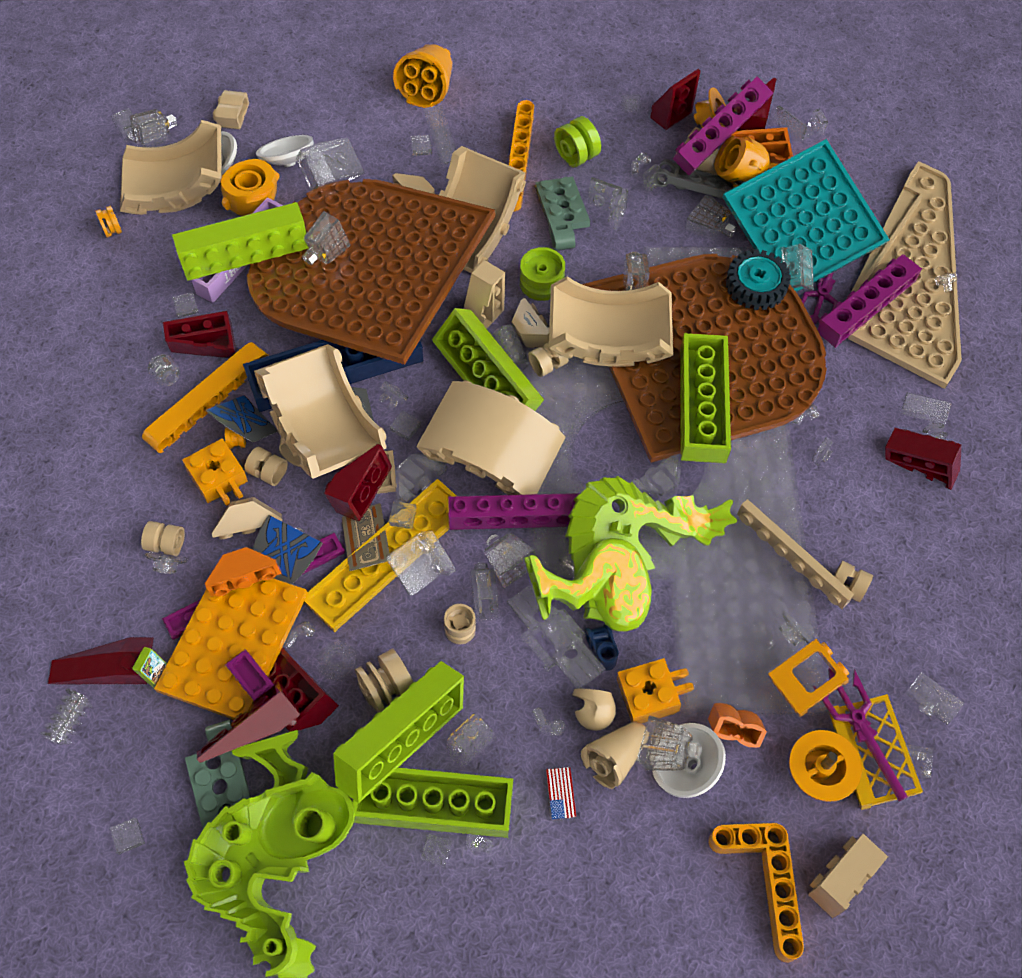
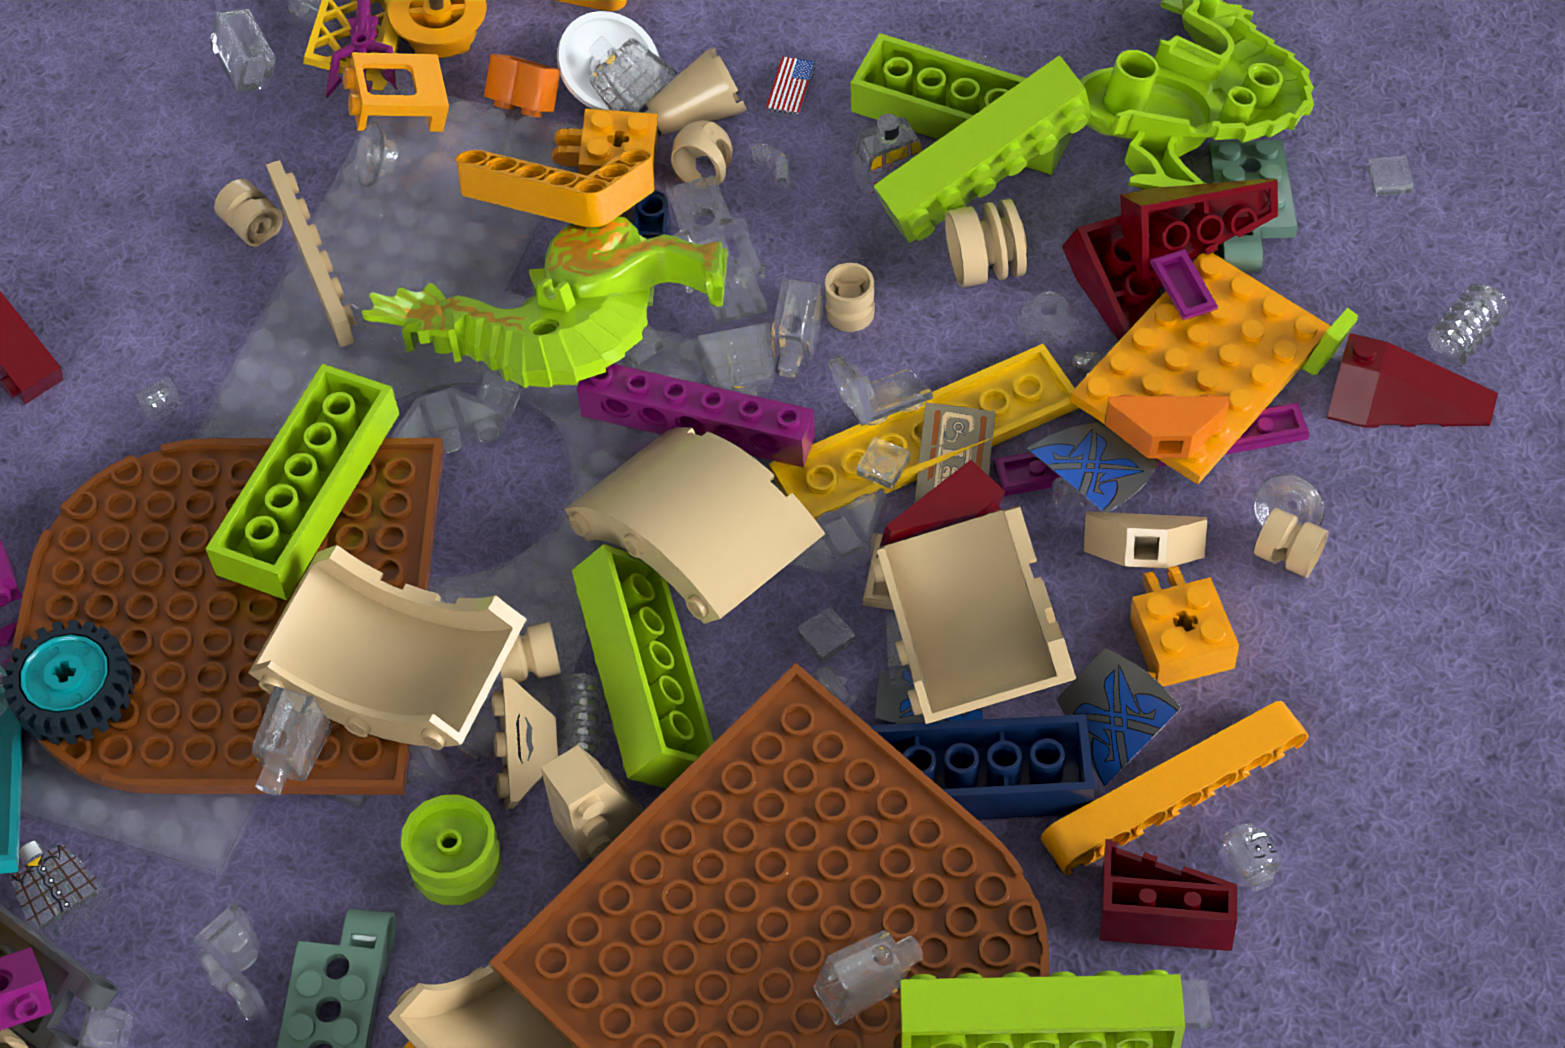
camera: 155 degrees left, 5 degrees down
(265, 465) = (1086, 613): tan wheel -> none
(668, 623) = (557, 192): none -> light orange beam

